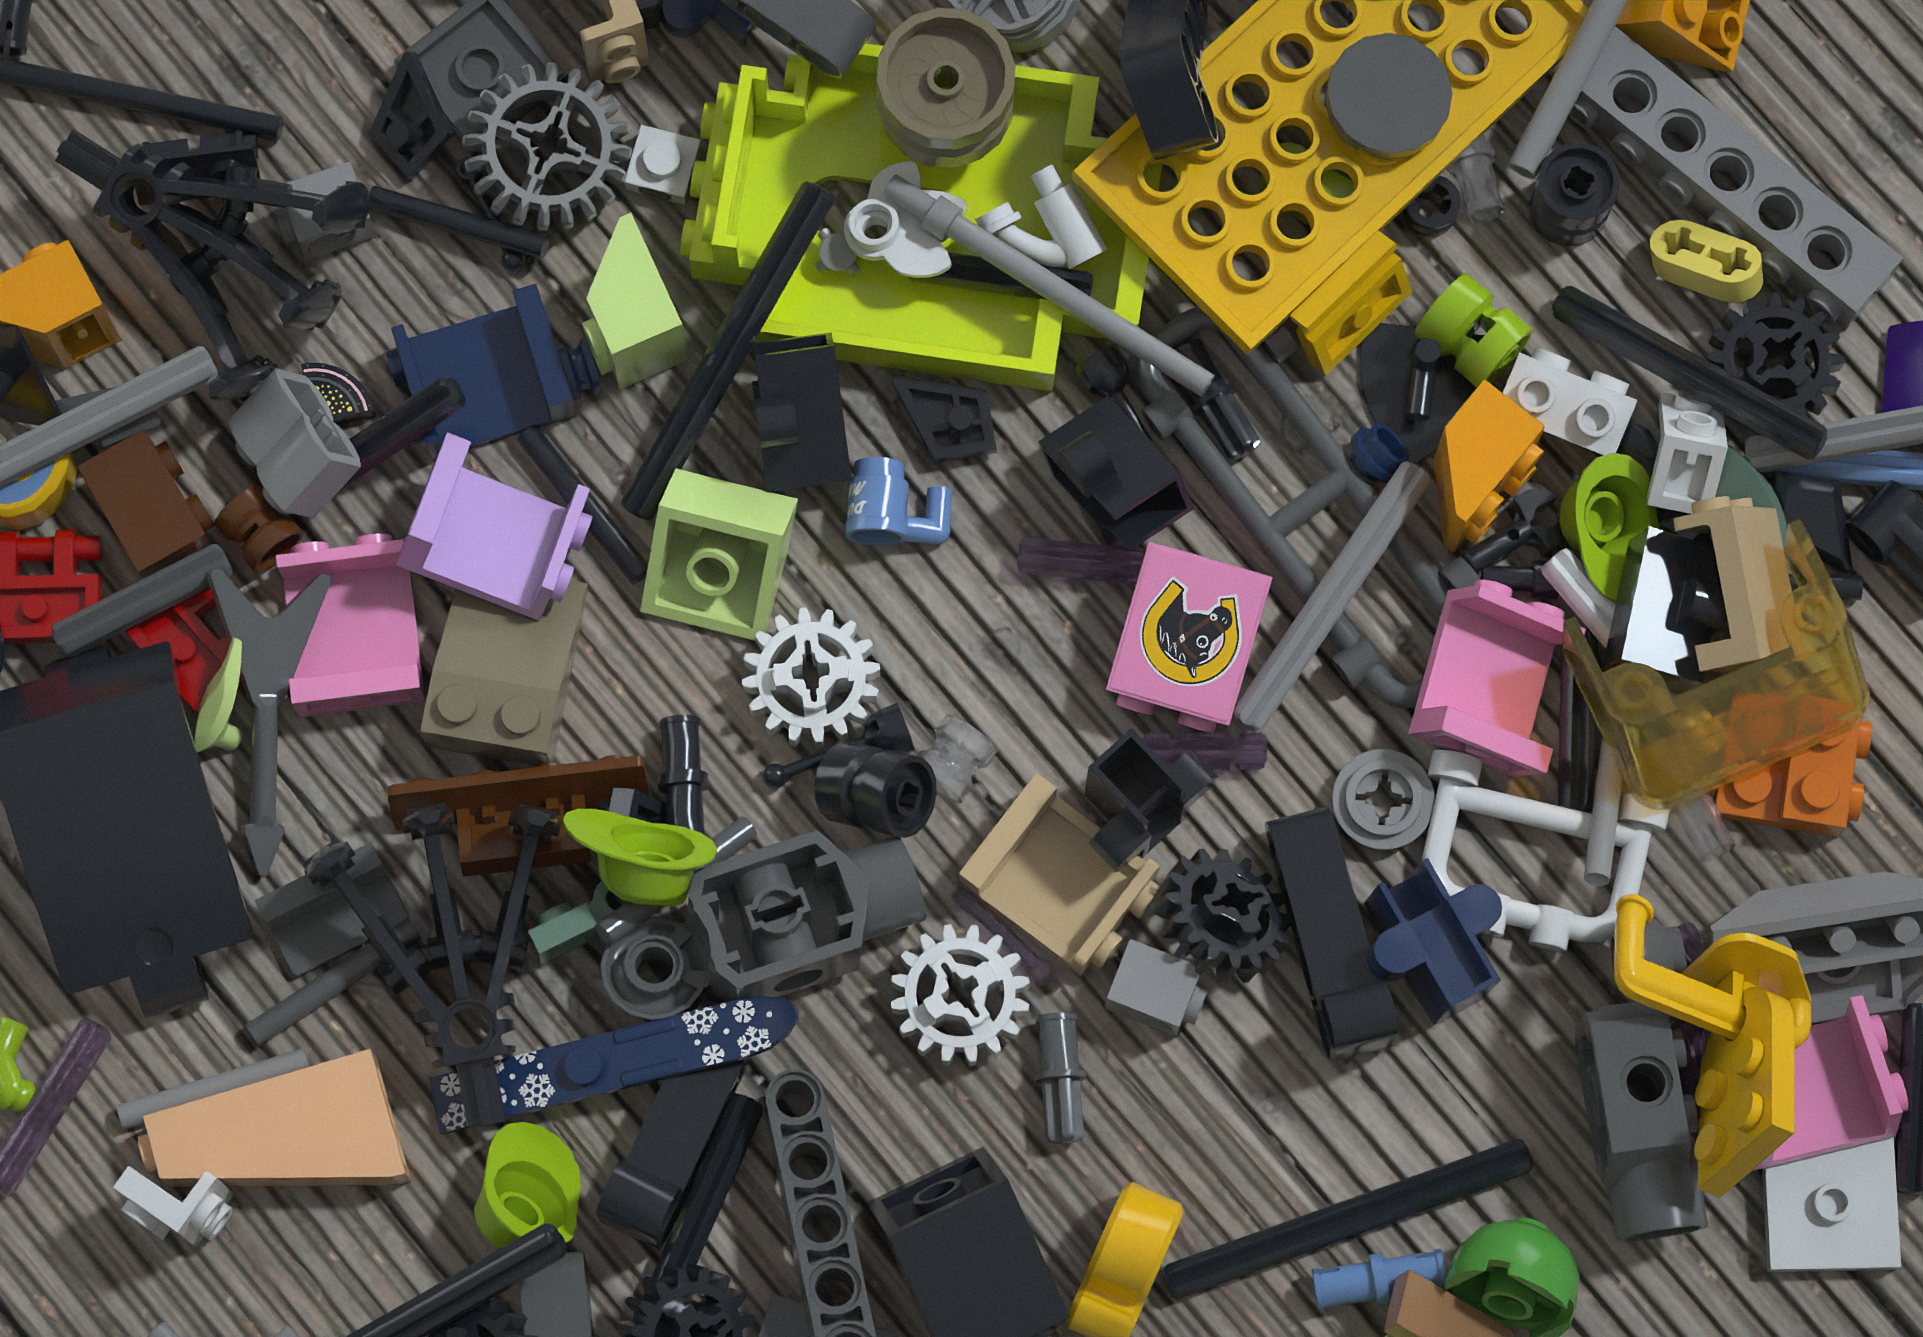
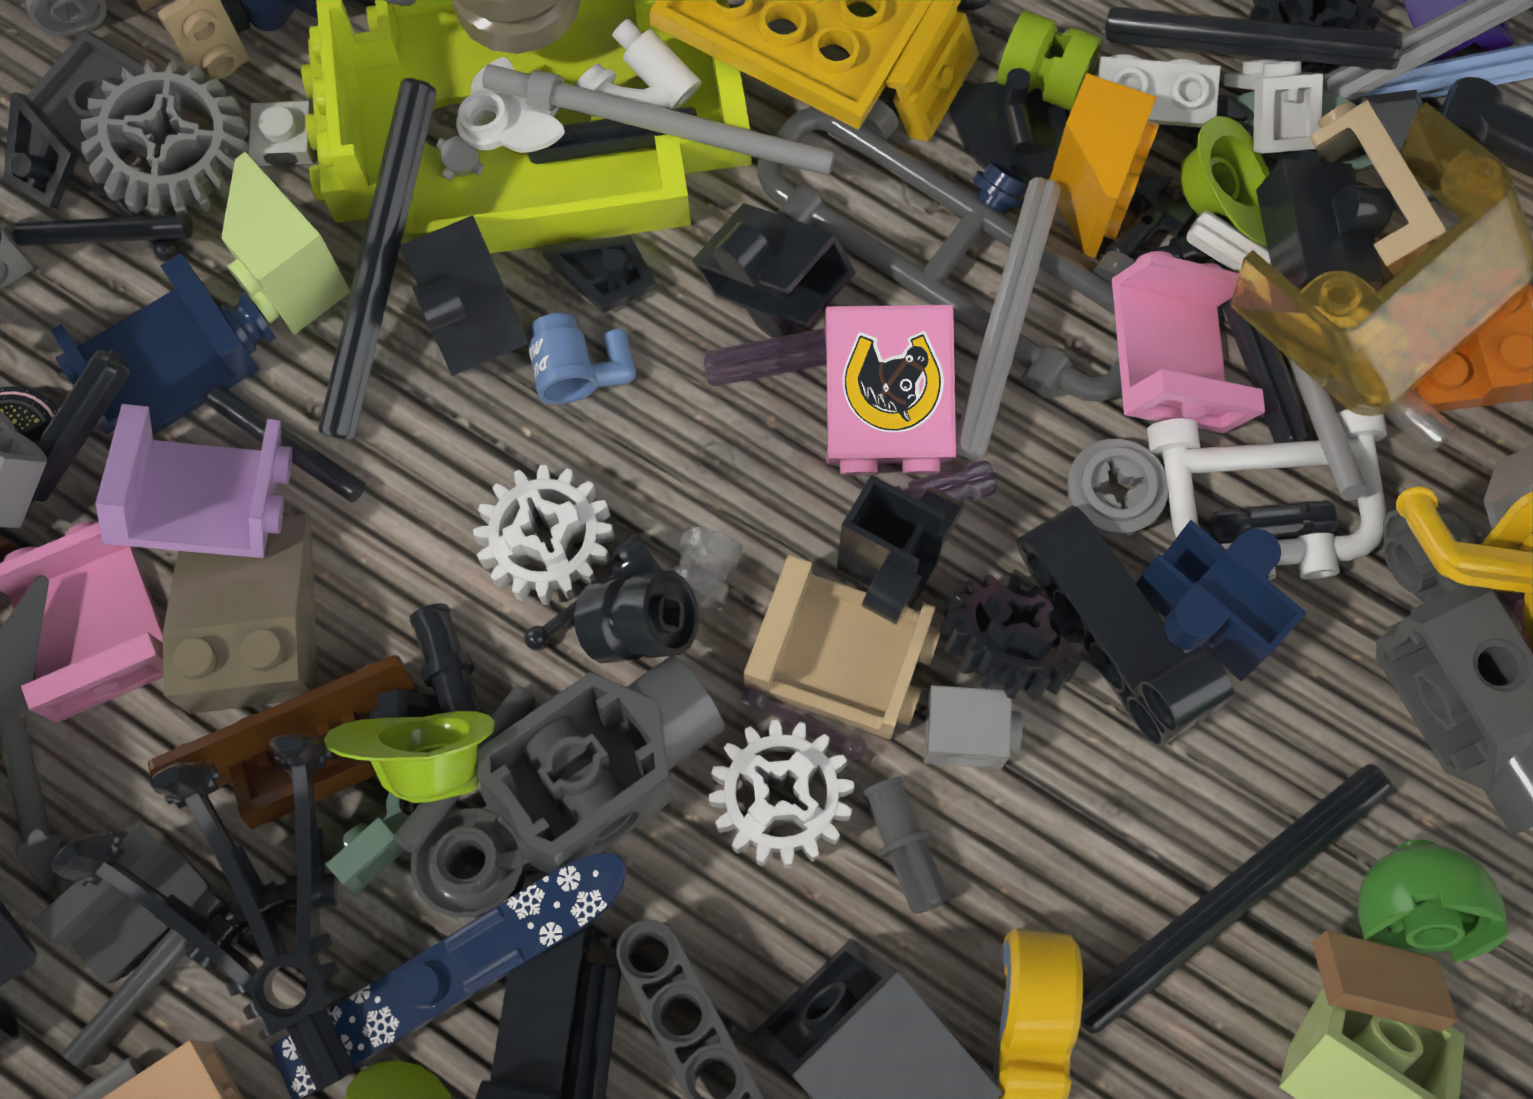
camera: 15 degrees left, 5 degrees down
(717, 554) = (421, 448): yellowish green slope -> none
(1106, 375) = (731, 189): black hinge -> none
(1220, 407) = (846, 194): black axle -> none
(1374, 1278) = (1285, 949): medium blue pin -> none
(1523, 882) = (1280, 520): none -> black axle

